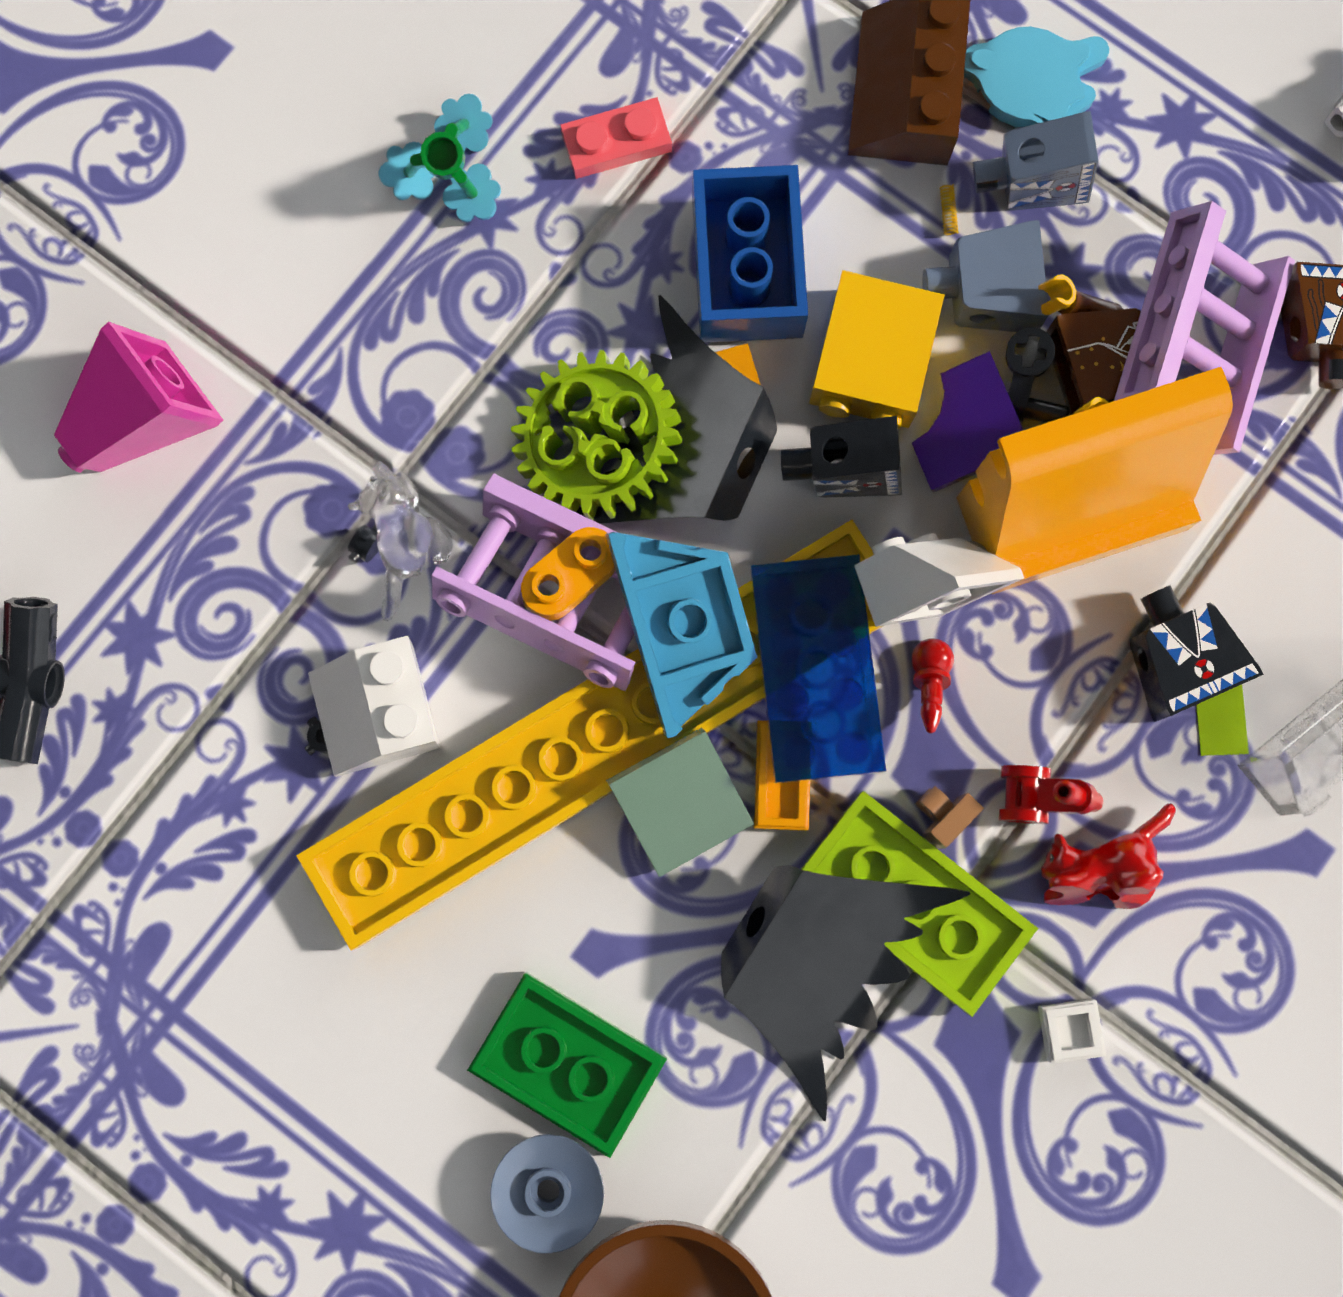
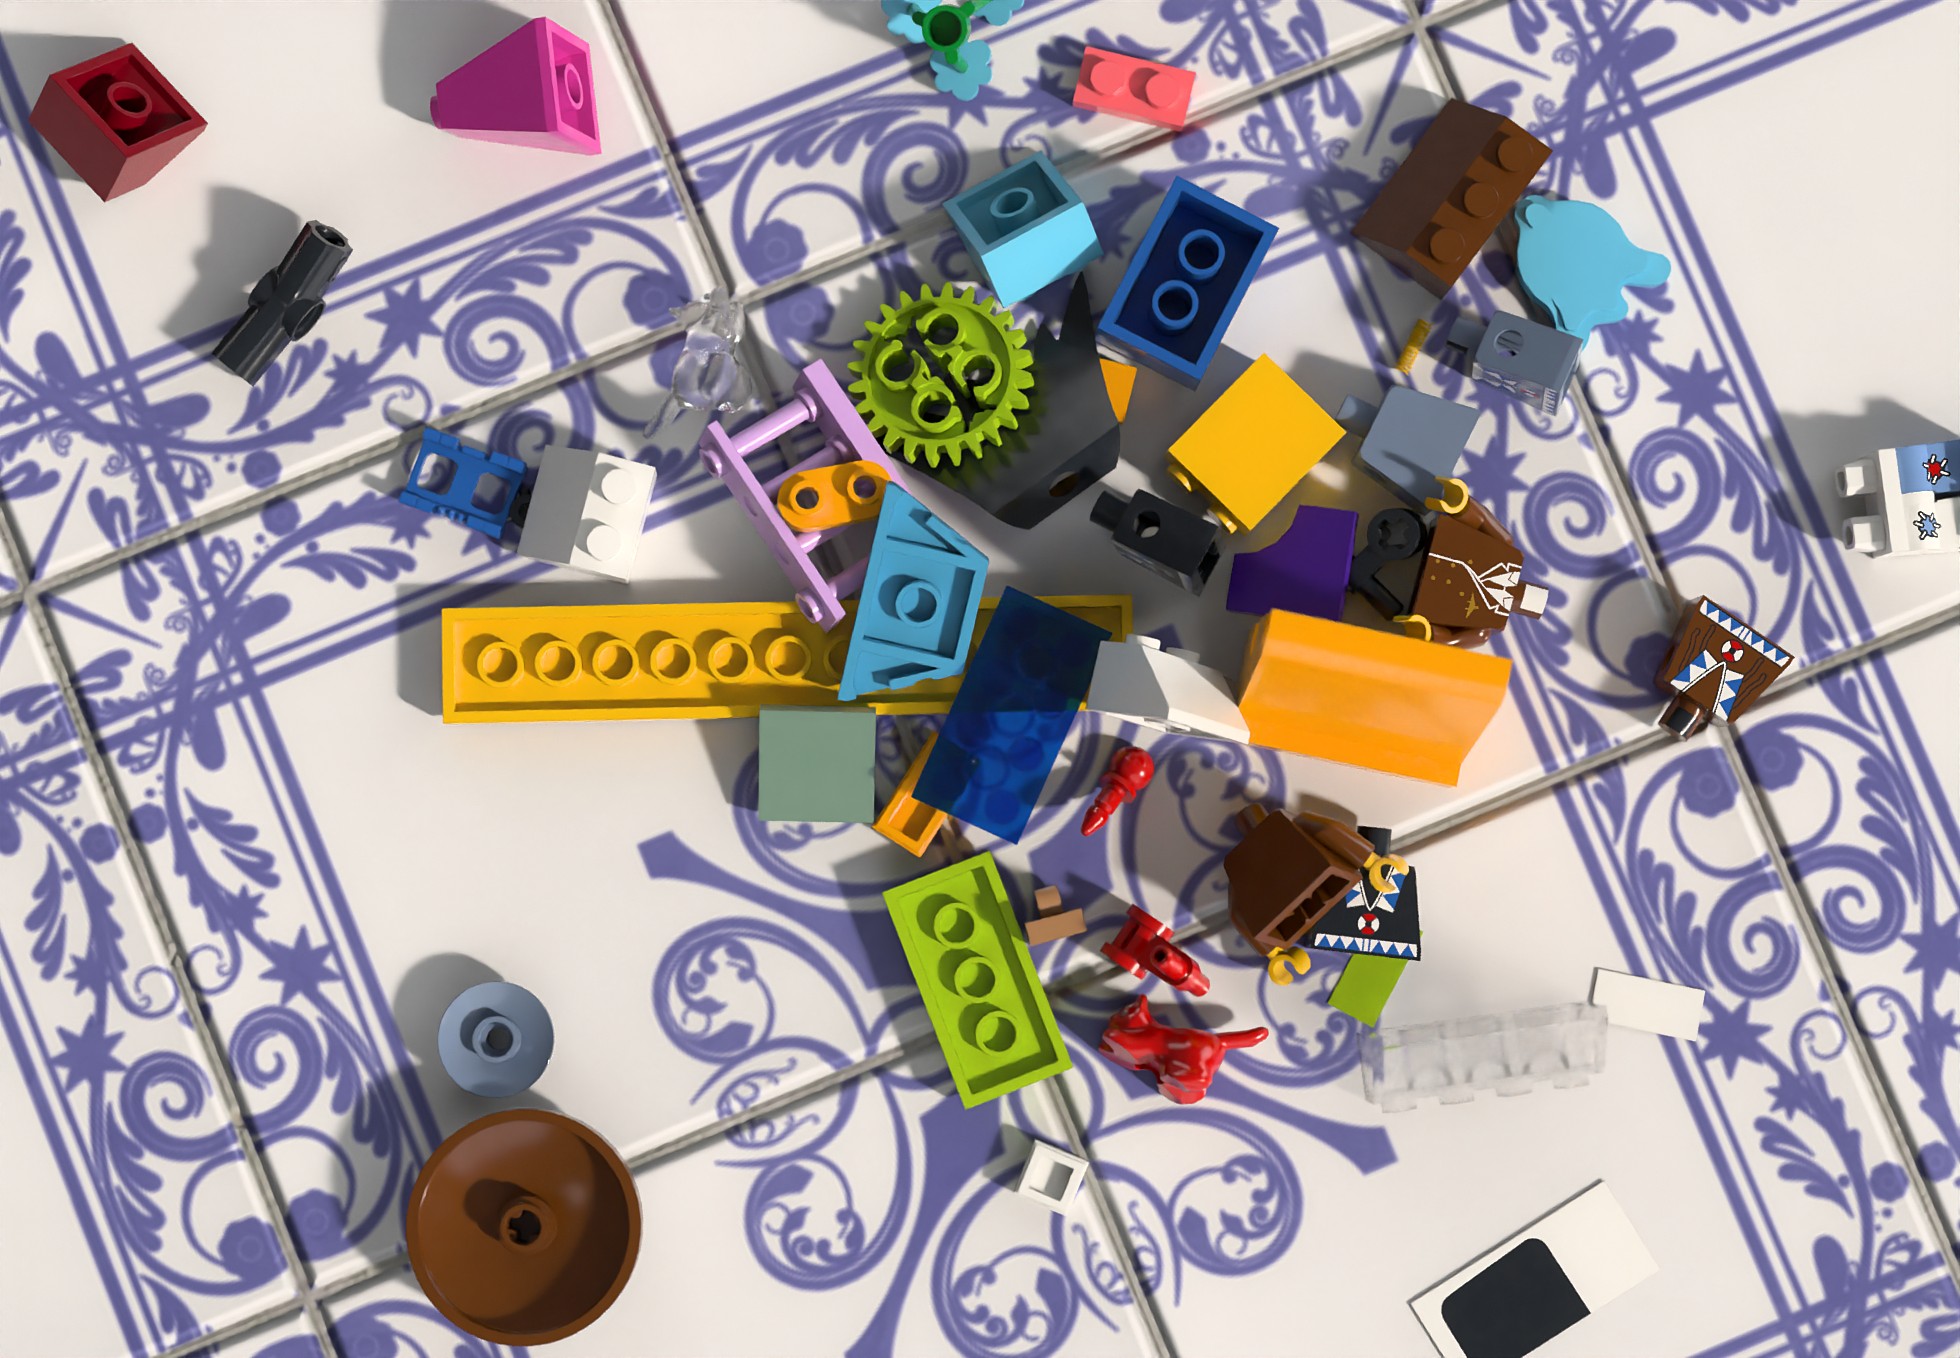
camera: 25 degrees right, 5 degrees up
(256, 727) = (470, 467): none -> blue piece
(363, 544) = (665, 352): black piece -> none
(567, 1064) = (579, 938): green tile -> none
(596, 286) = (1024, 229): none -> medium azure slope
(807, 953) = (850, 968): black piece -> none
(1119, 667) = (1290, 876): none -> reddish brown torso
(1179, 292) = (1541, 573): lavender fence -> none

